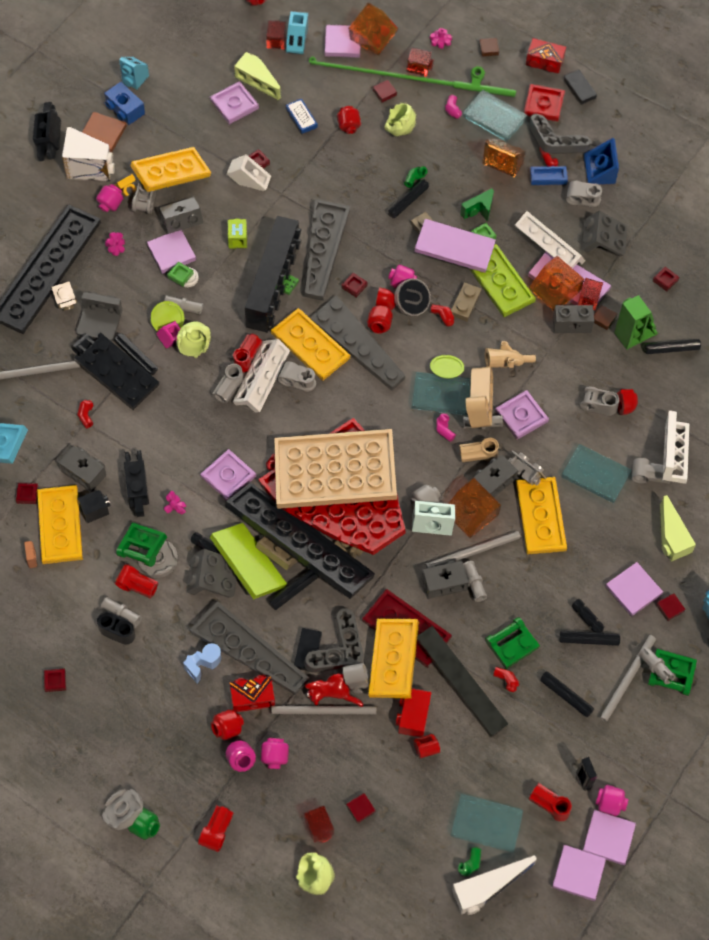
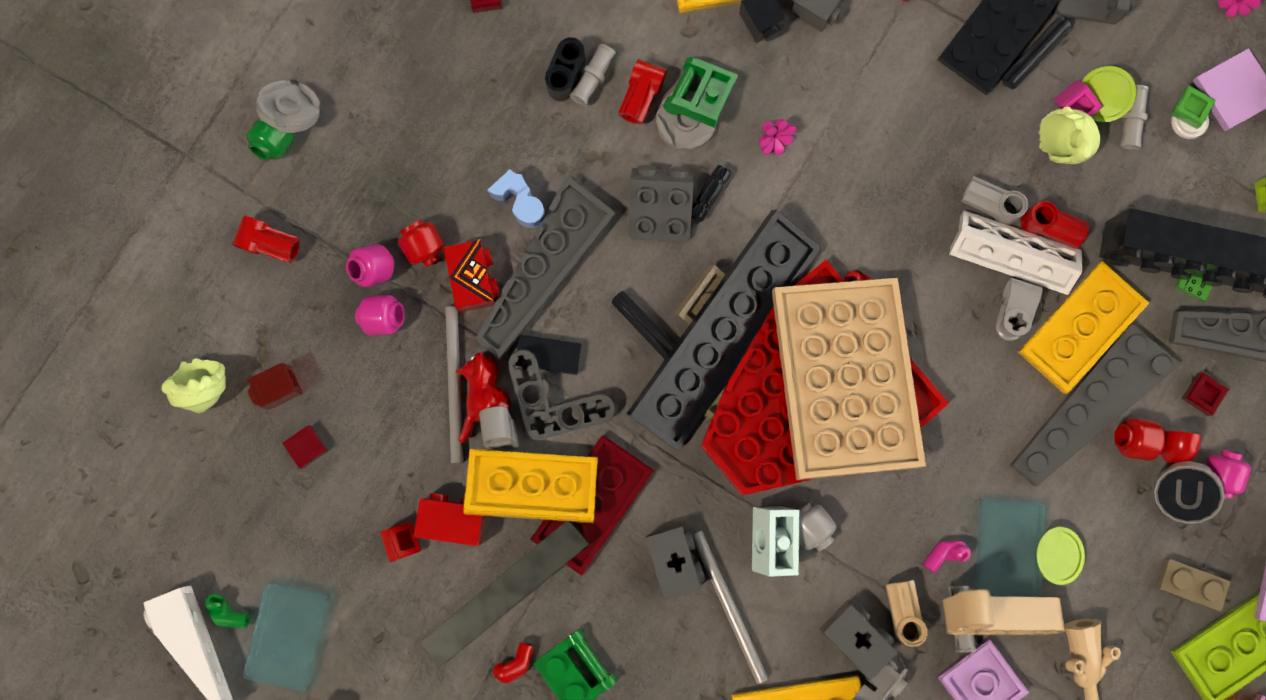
camera: 90 degrees right, 20 degrees up
(136, 483) = (805, 73): black hinge -> none
(228, 475) = (833, 214): lavender tile -> none
(247, 561) = (683, 251): lime tile -> none
(445, 314) = (1164, 549): red arm -> none
(474, 507) = (801, 605): clear orange slope -> none
(475, 581) = (674, 610): light grey pin -> none

